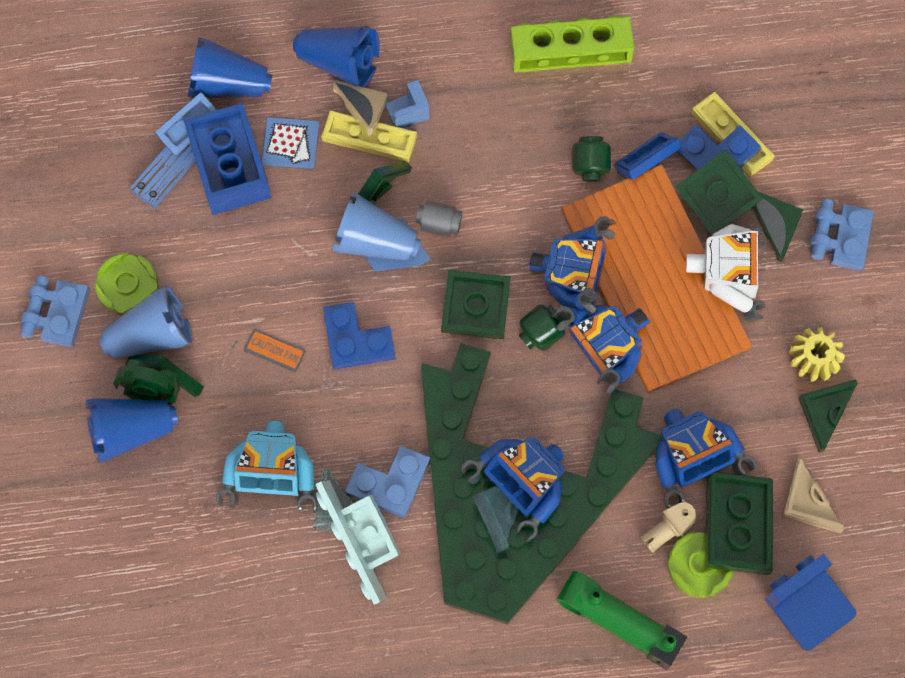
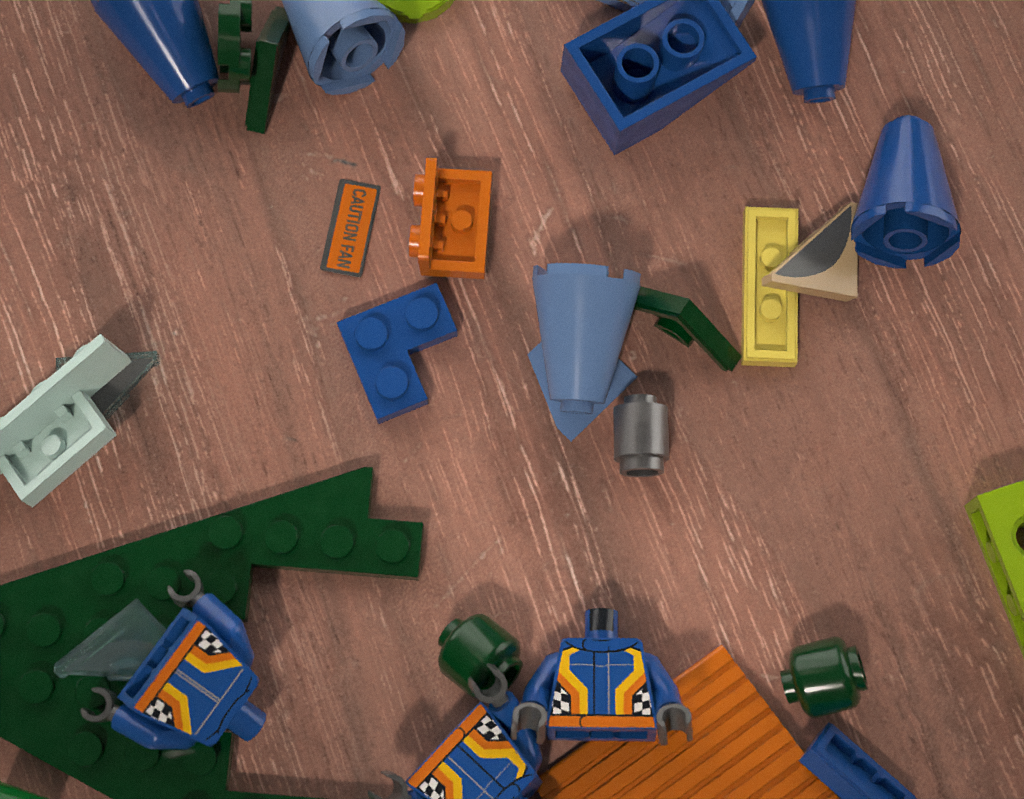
camera: 75 degrees right, 5 degrees up
(269, 465) = (138, 261): medium azure torso -> none
(289, 289) = (453, 221): none -> orange bracket
(290, 143) = (725, 162): sticker -> none
(392, 491) = (144, 472): medium blue plate -> none
(409, 108) = (839, 338): medium blue panel -> none
(475, 304) = (499, 533): dark green plate -> none

